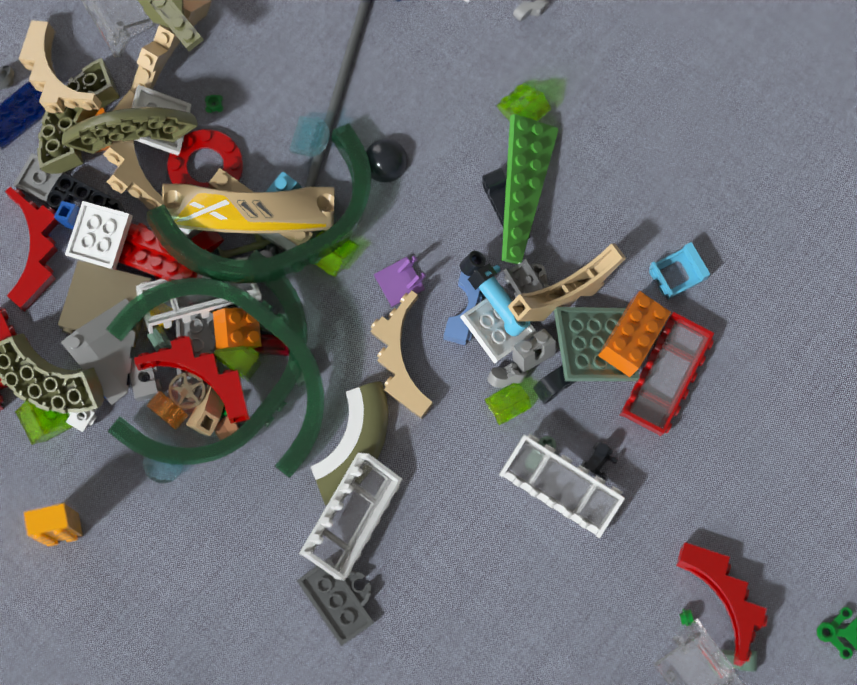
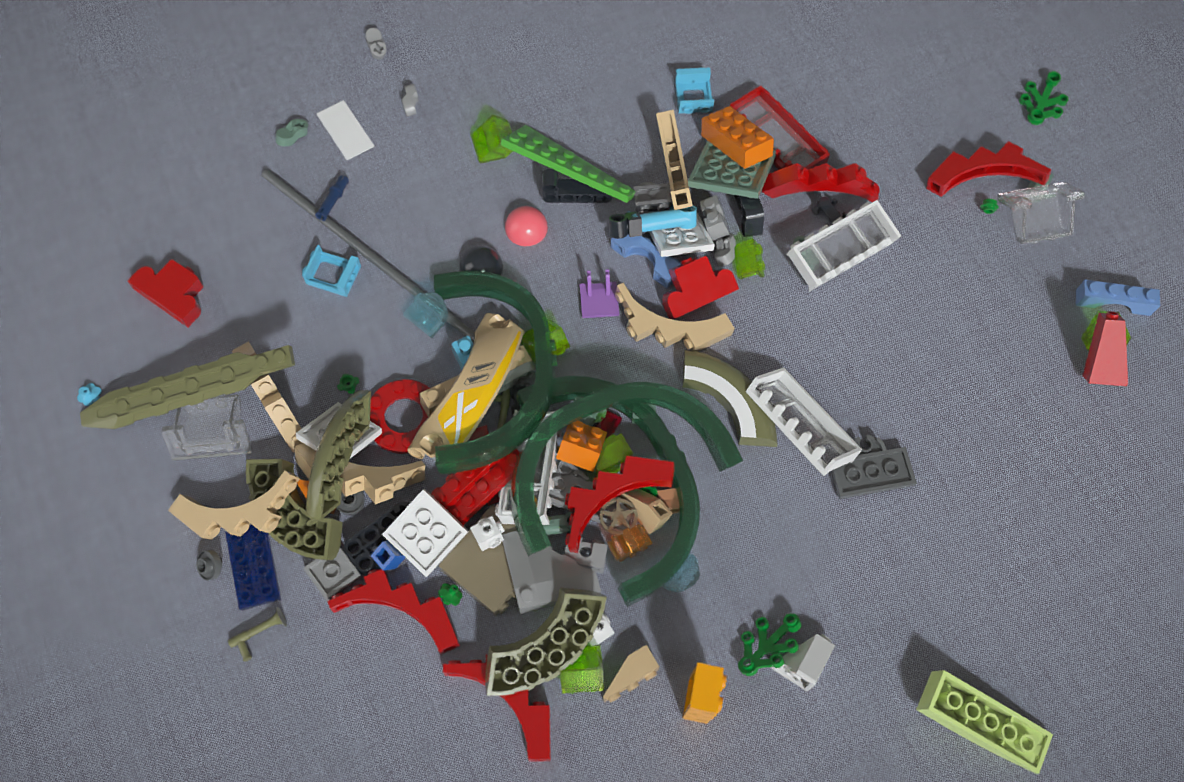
camera: 65 degrees left, 10 degrees down
(58, 282) = (450, 594): none -> green plant
(61, 462) = (636, 667): none -> tan slope
(101, 162) = (351, 504): none -> dark grey plate
(118, 286) = (488, 533): none -> white brick
(127, 605) = (807, 663): none -> white slope
(128, 566) = (768, 646): none -> green plant
(318, 49) = (350, 271): none -> medium azure window
(447, 181) = (526, 226): none -> coral piece
(449, 364) = (696, 286): none -> red brick
(624, 440) = (796, 178): none -> red arch

